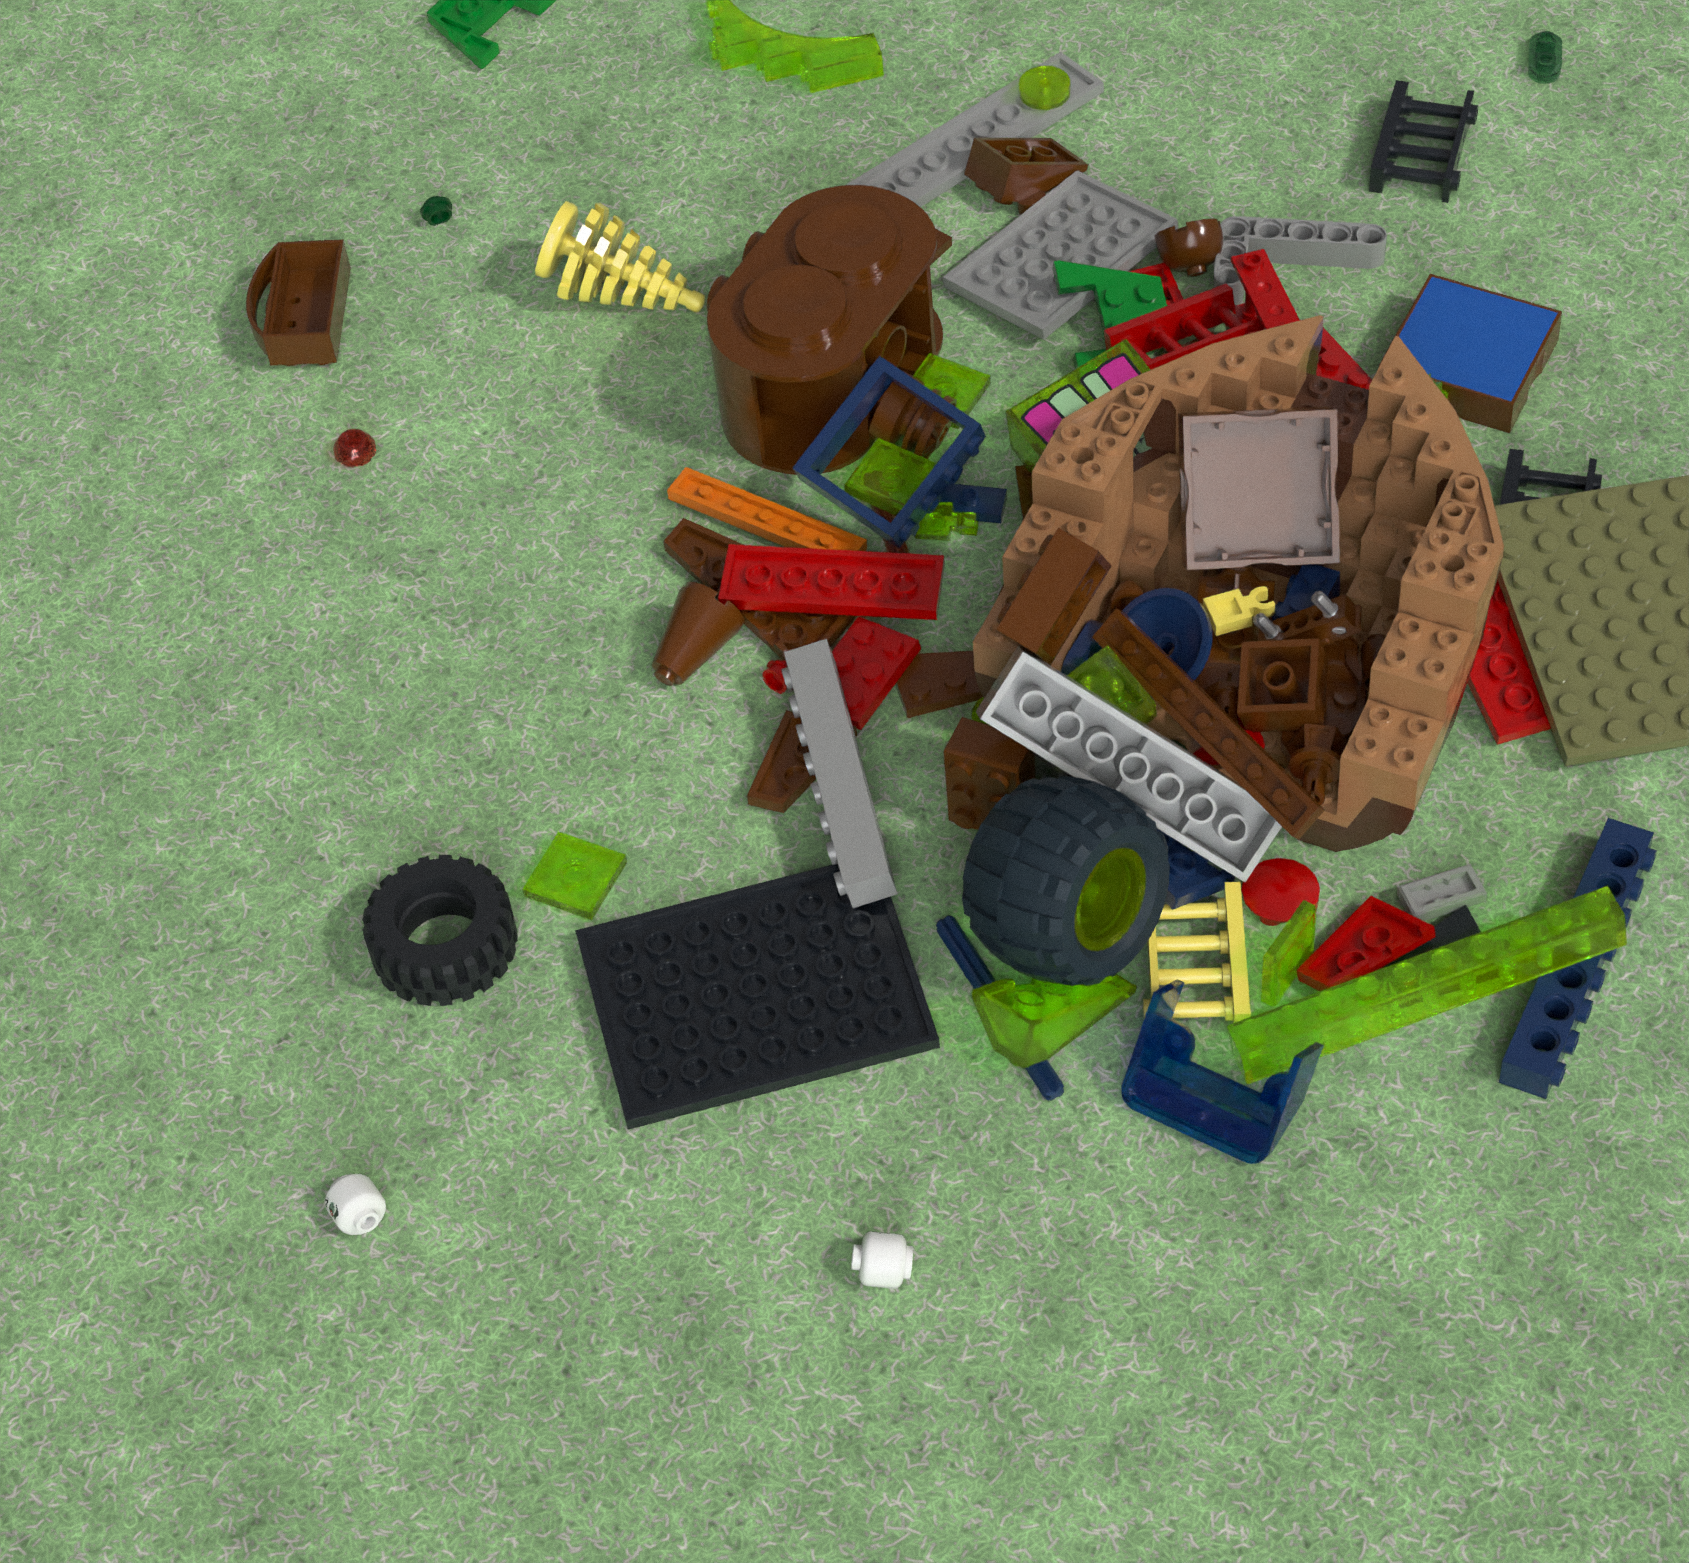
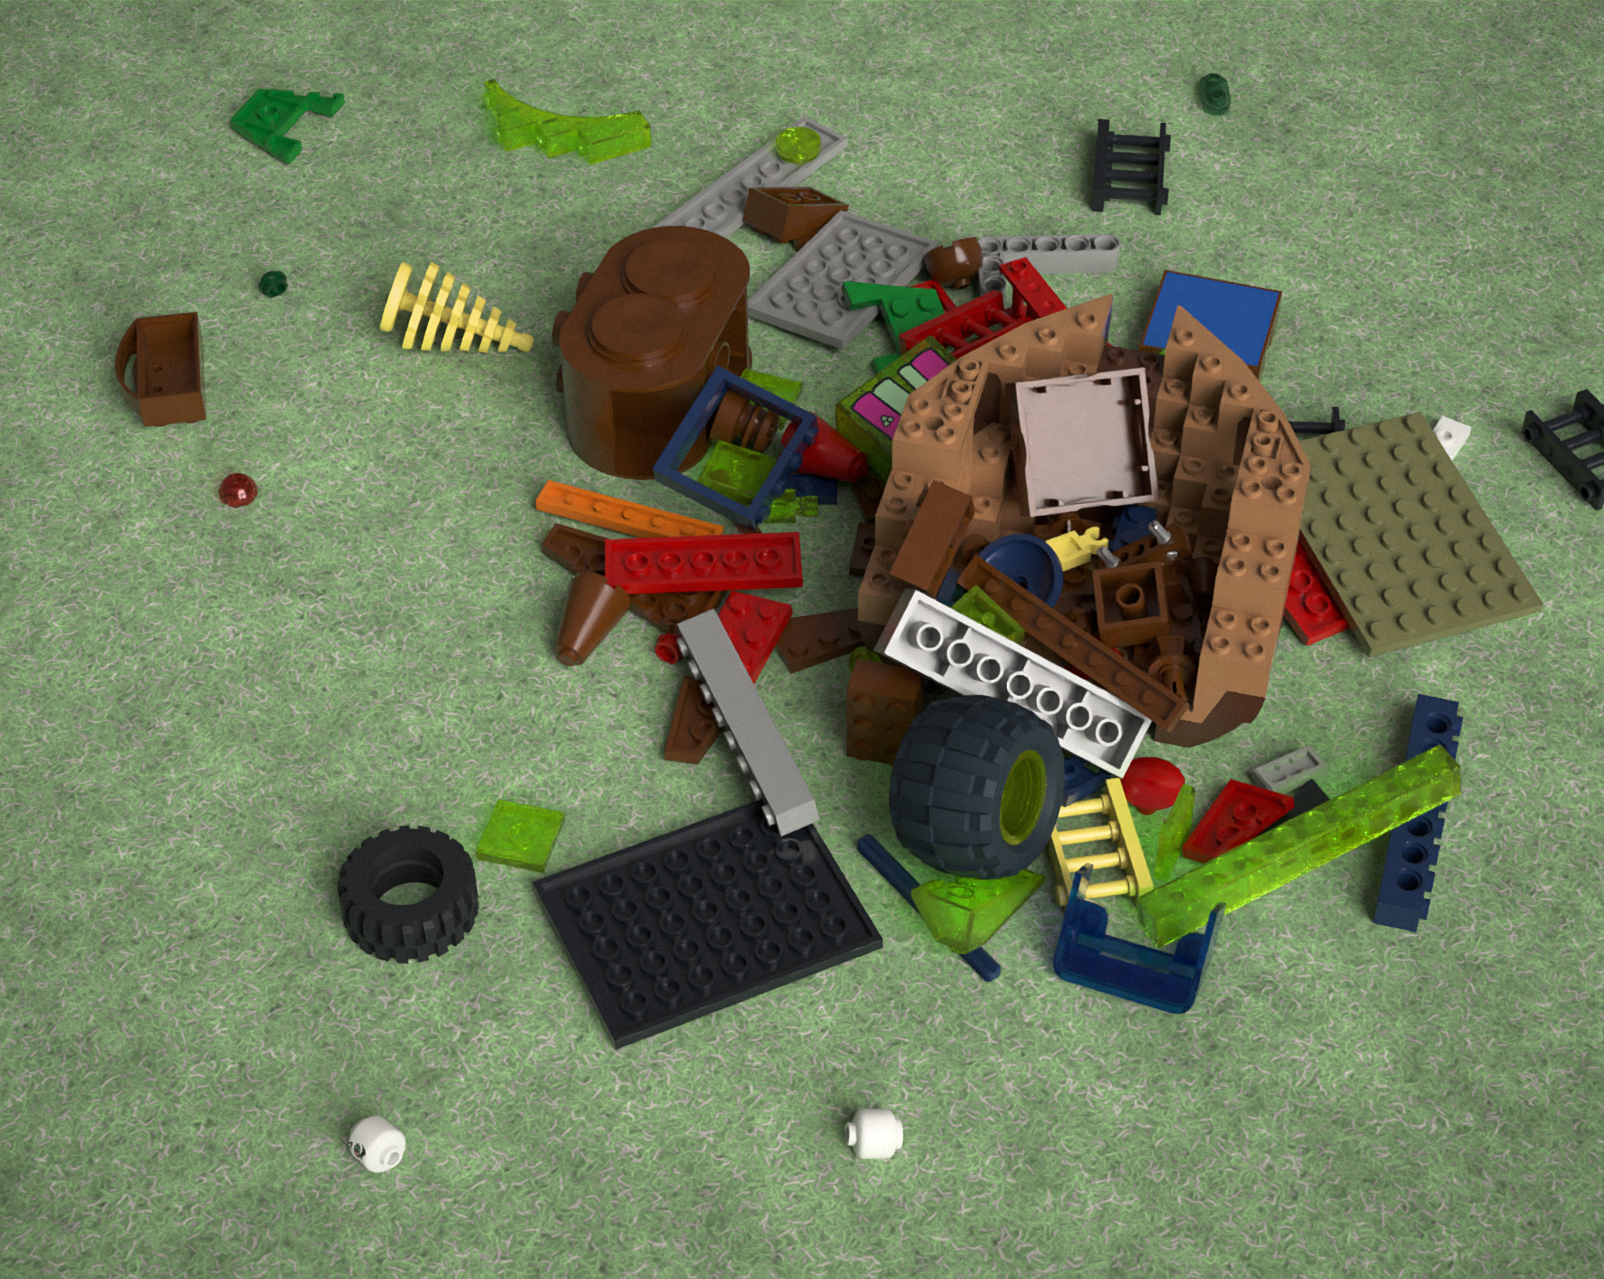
camera: 15 degrees left, 5 degrees down
(998, 465) = (830, 455): none -> red cone

